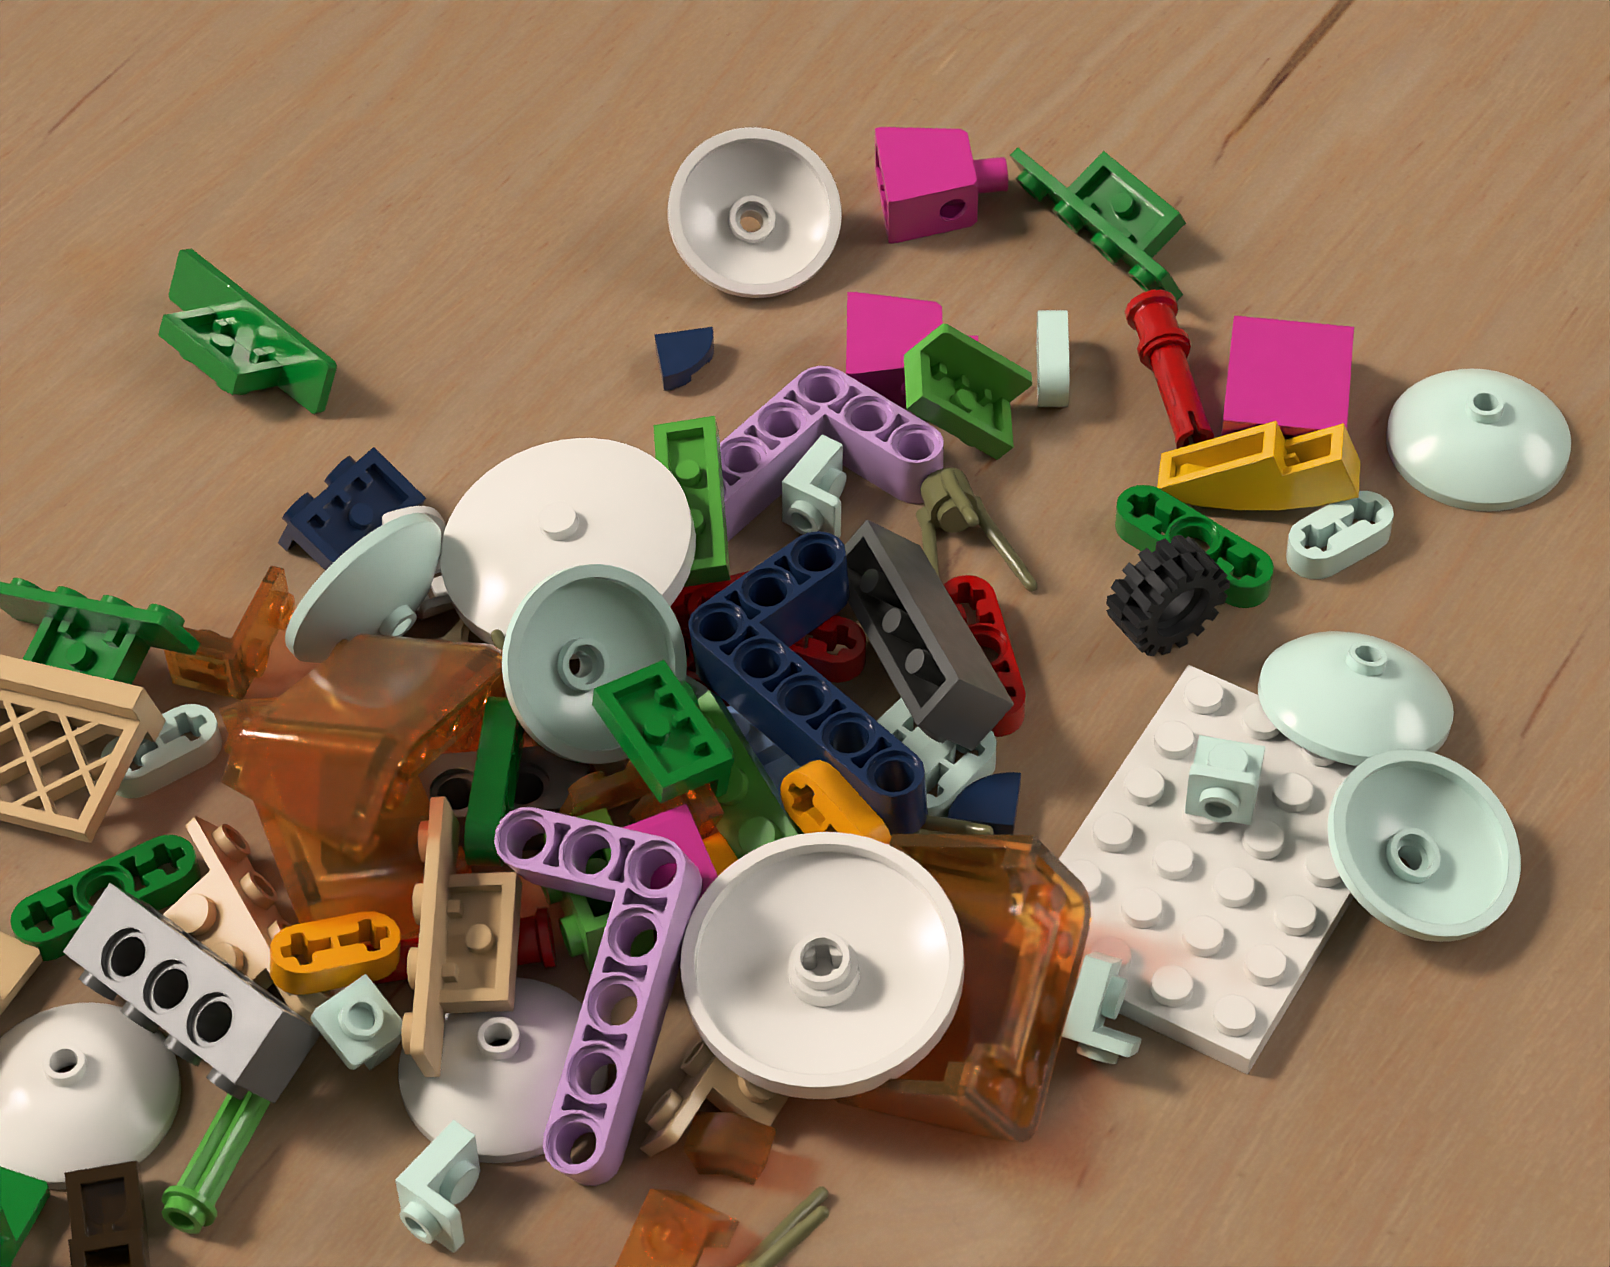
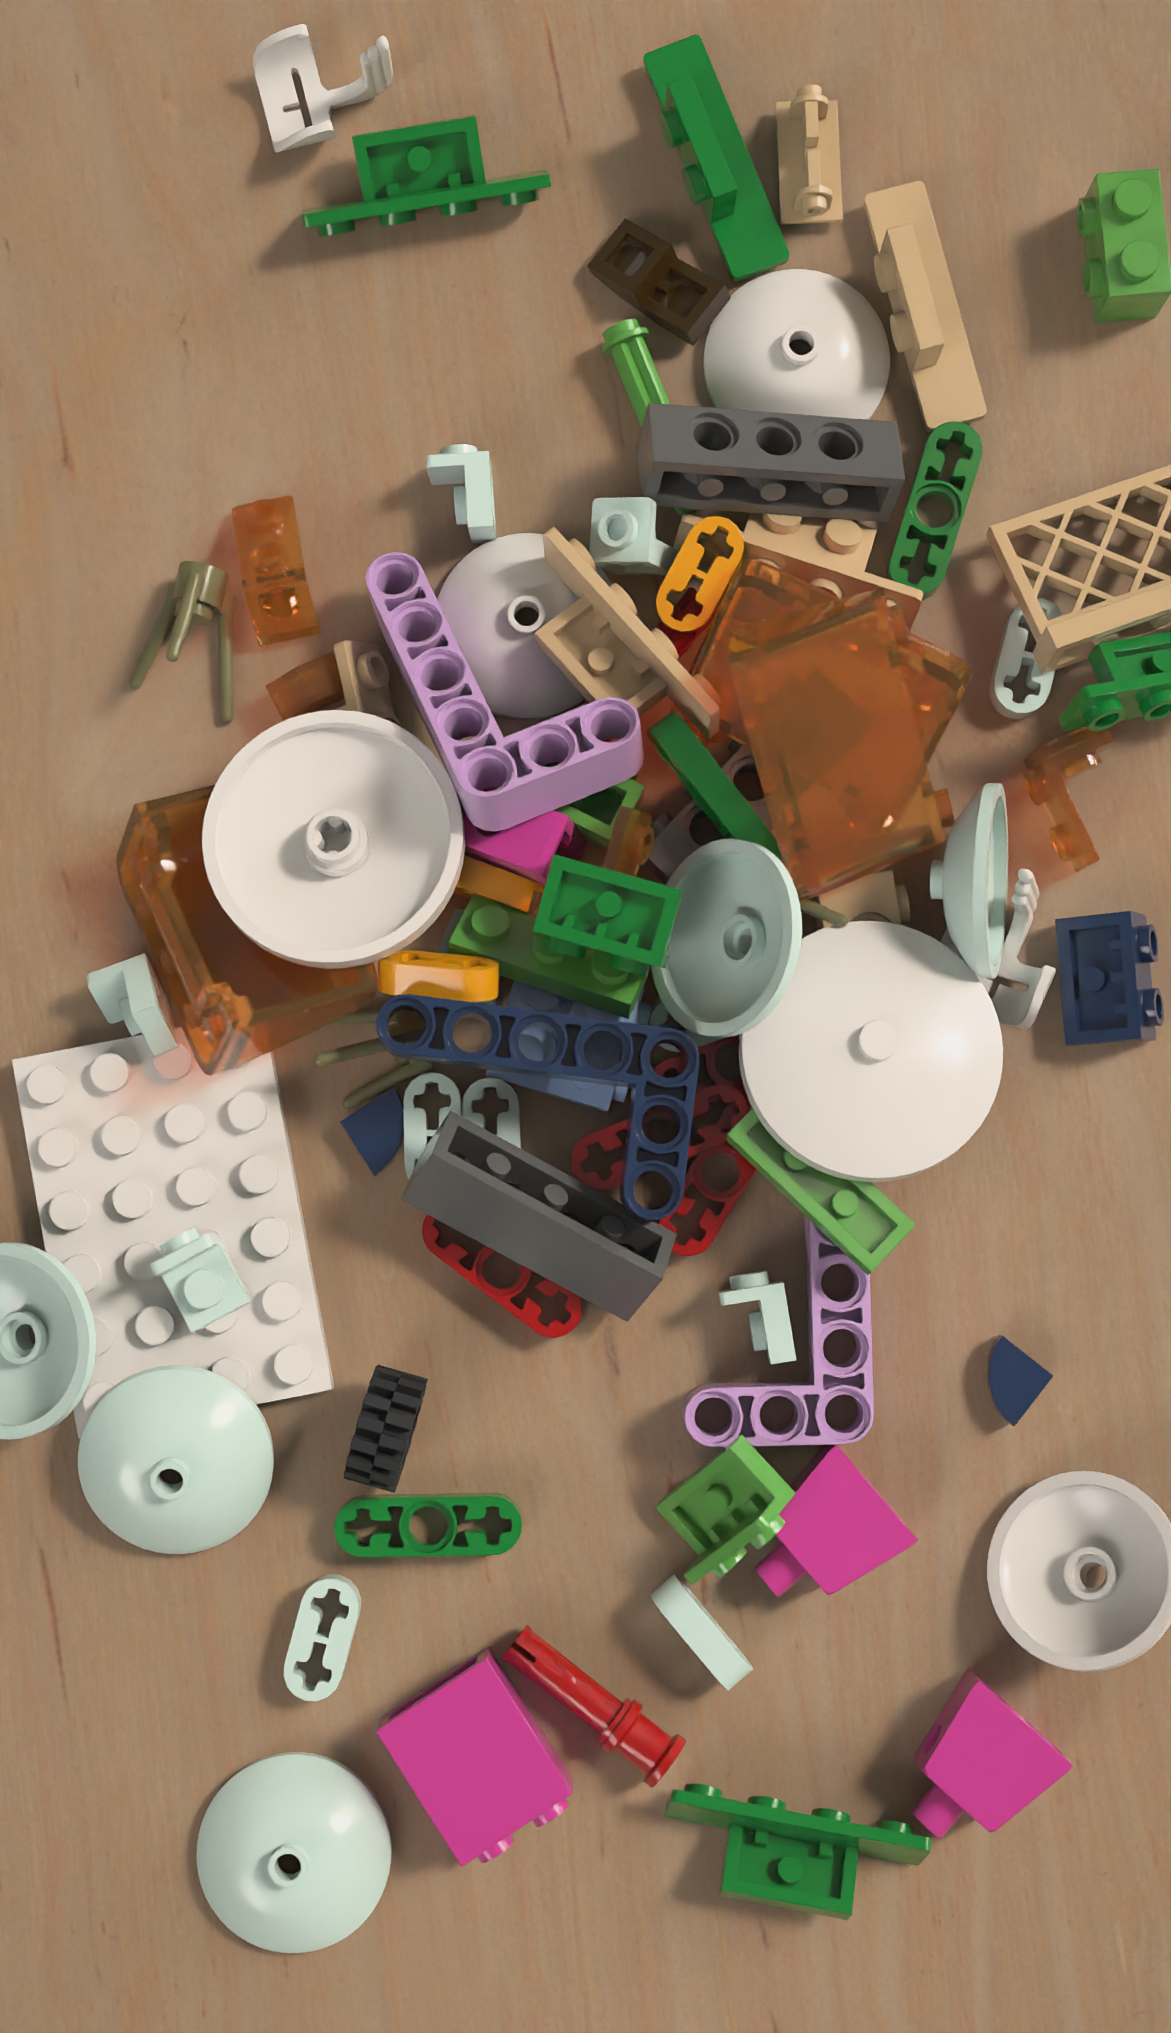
camera: 135 degrees right, 35 degrees up
(954, 508) = (650, 1397): olive plant -> none
(1264, 470) = (428, 1643): yellow slope -> none

